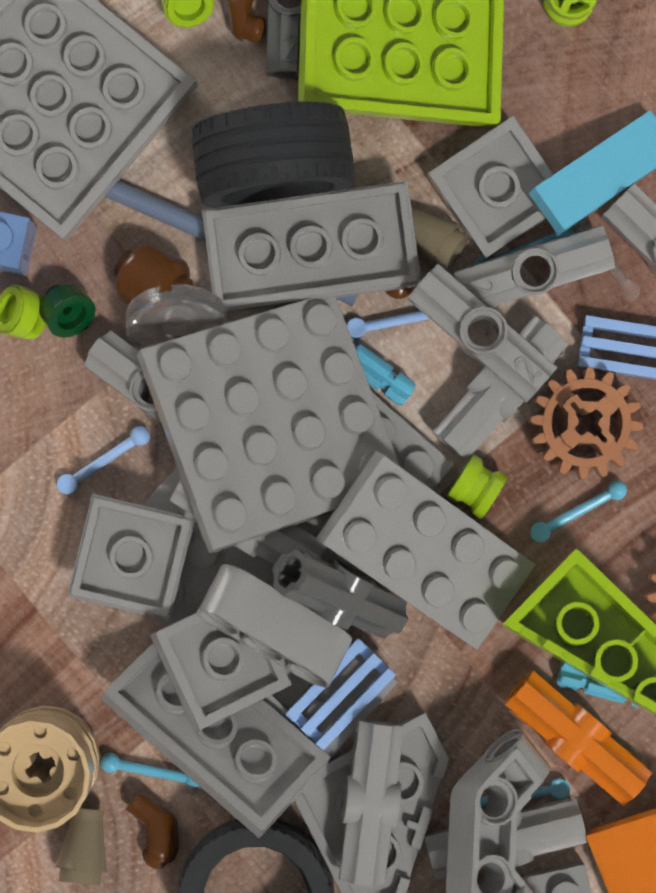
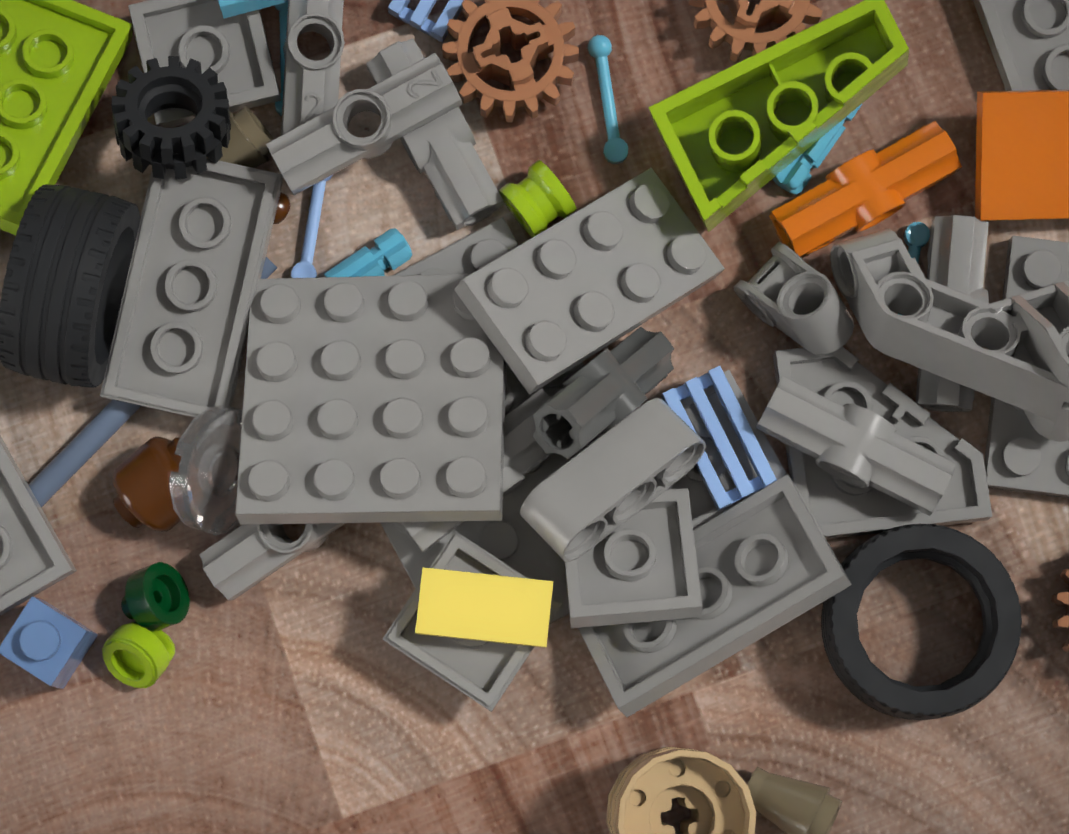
camera: 65 degrees left, 5 degrees down
(69, 483) = (359, 672): light blue hinge -> none
(111, 763) = (705, 738): medium azure hinge -> none
(141, 563) = (484, 607): none -> light yellow tile
(161, 830) = (804, 707): reddish brown arm -> none
(455, 170) = (165, 89): none -> black tyre
(472, 709) = (797, 302): none -> light grey piece

